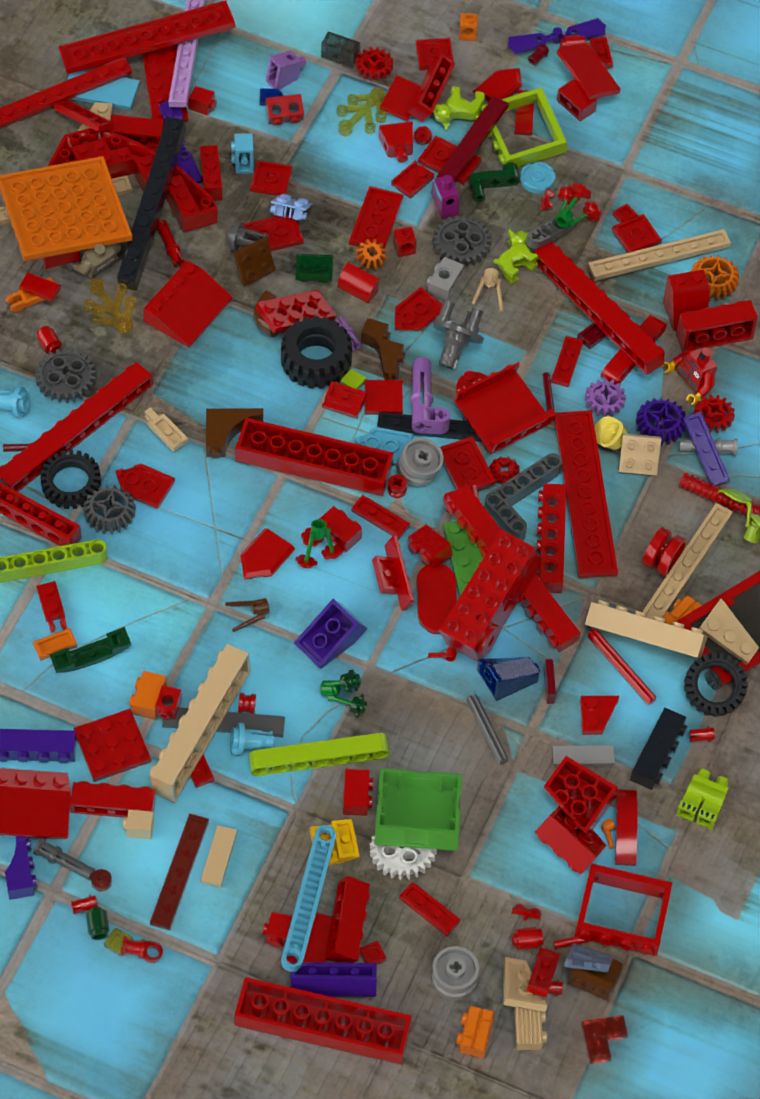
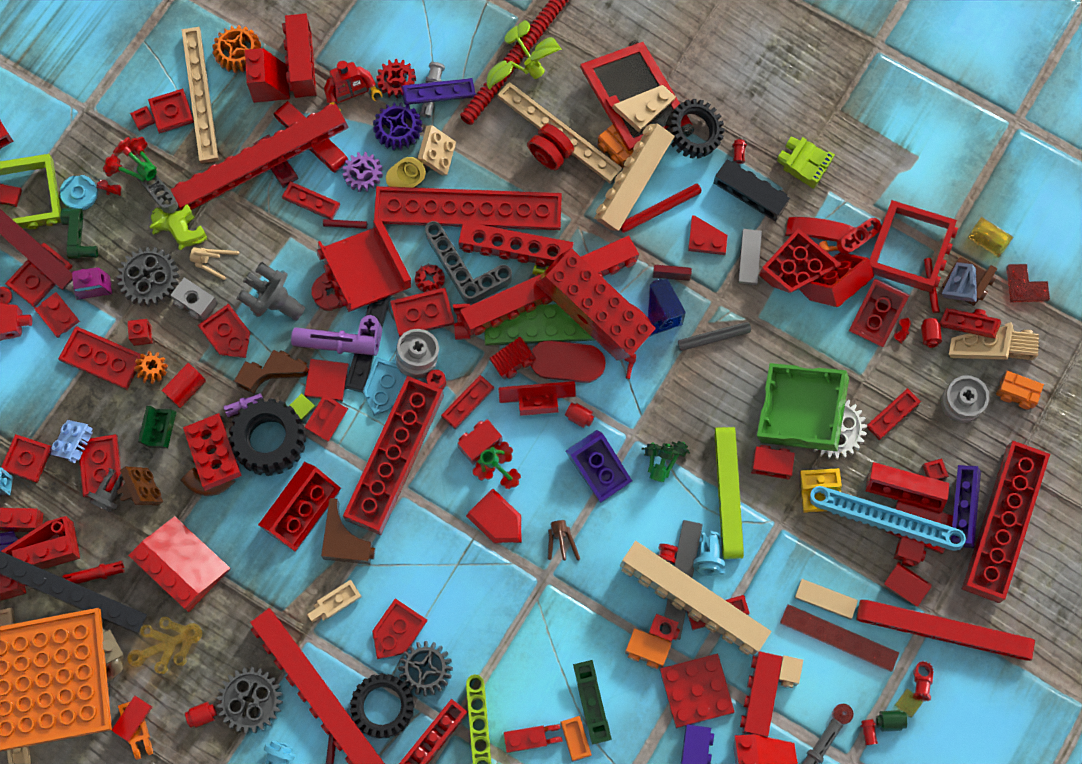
camera: 80 degrees left, 15 degrees up
(198, 972) = (946, 630): none -> red beam
(243, 931) = (907, 584): none -> red brick
(253, 389) = (299, 506): none -> red slope
(380, 612) = (579, 415): none -> red brick
(543, 884) = (879, 312): none -> red slope
(618, 842) = (862, 228): none -> red beam
(651, 991) = (990, 237): none -> clear yellow brick

